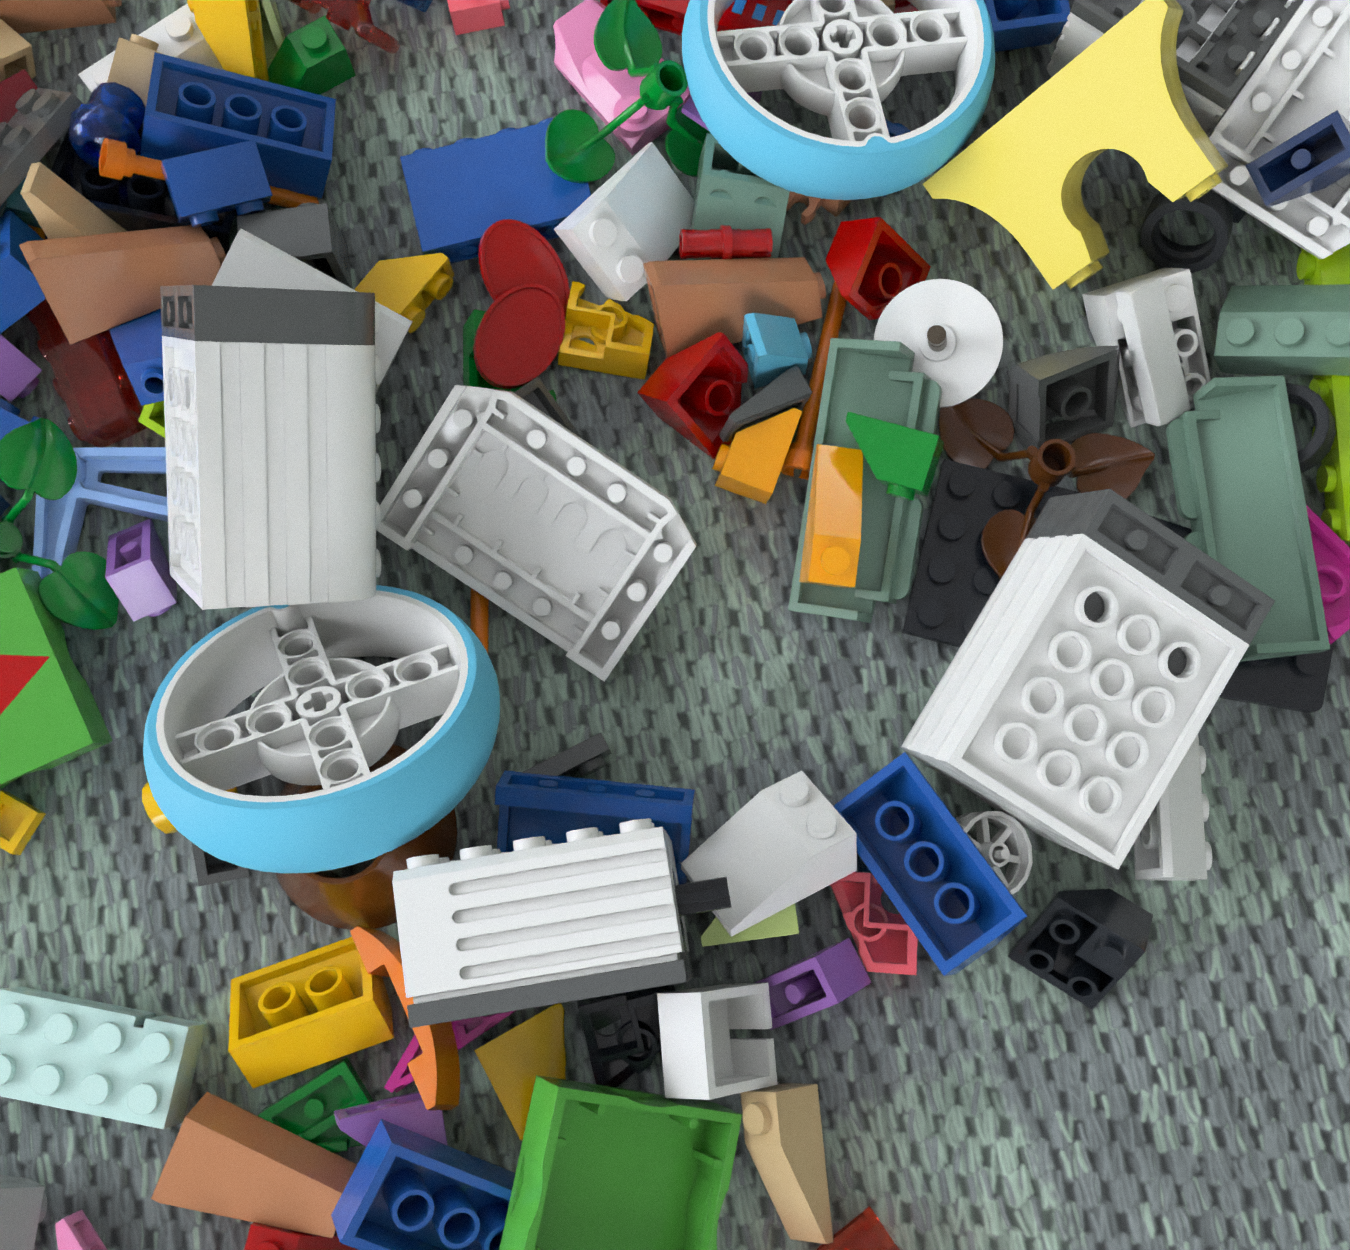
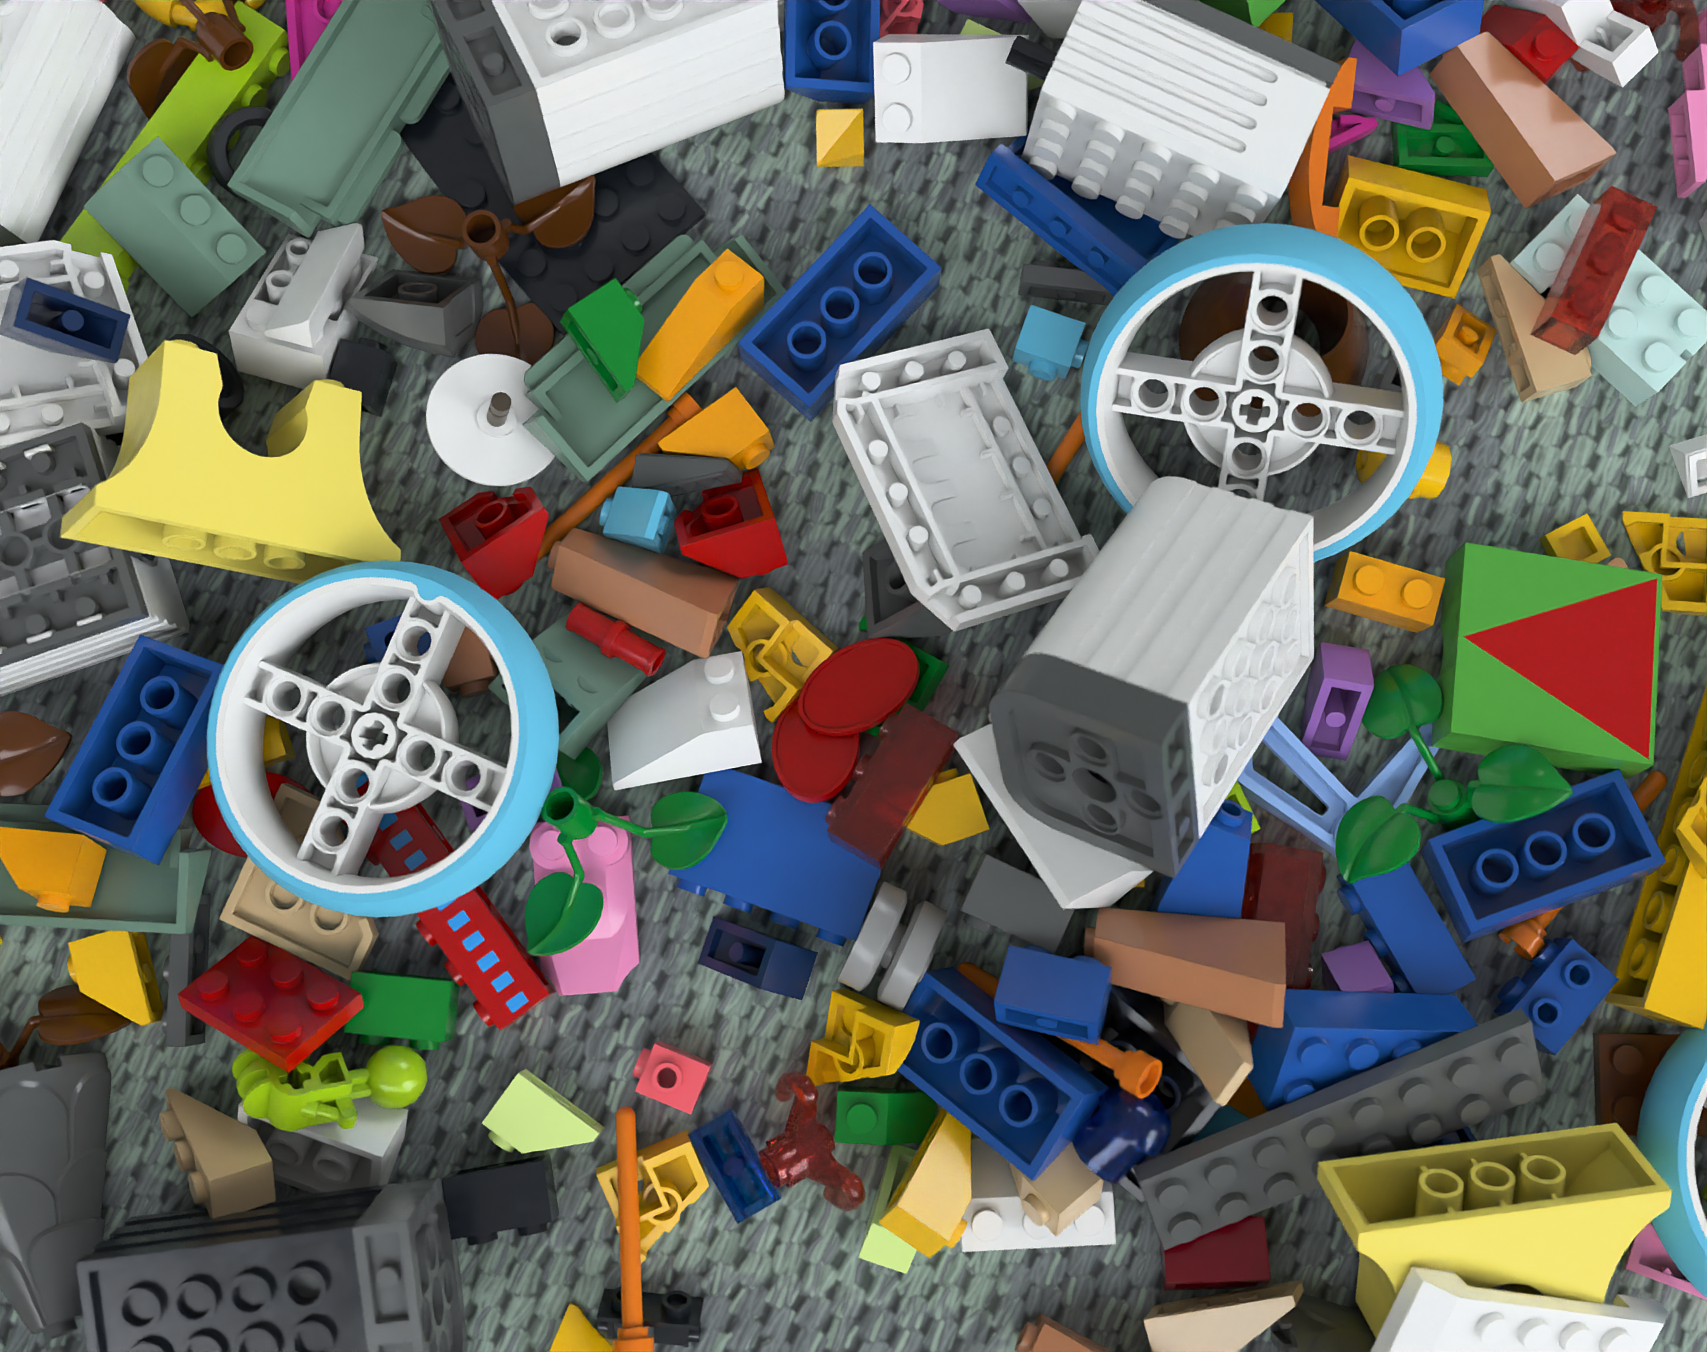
camera: 150 degrees left, 5 degrees up
(102, 1047) = (1593, 270): none -> clear red brick
(130, 976) = (1534, 364): none -> tan slope
(132, 678) = (1384, 592): none -> light orange brick
(198, 933) = (1463, 344): none -> light orange slope
(352, 99) = (860, 1040): none -> yellow slope
(368, 167) = (897, 947): none -> light grey wheel
(441, 267) = (891, 785): none -> clear red brick
(465, 108) = (757, 958): none -> dark blue slope
(546, 703) = (1050, 344): none -> medium azure brick
(732, 610) = (839, 311): none -> blue brick
(837, 766) = (840, 138): none -> yellow slope
(1068, 319) = (366, 369): none -> black brick

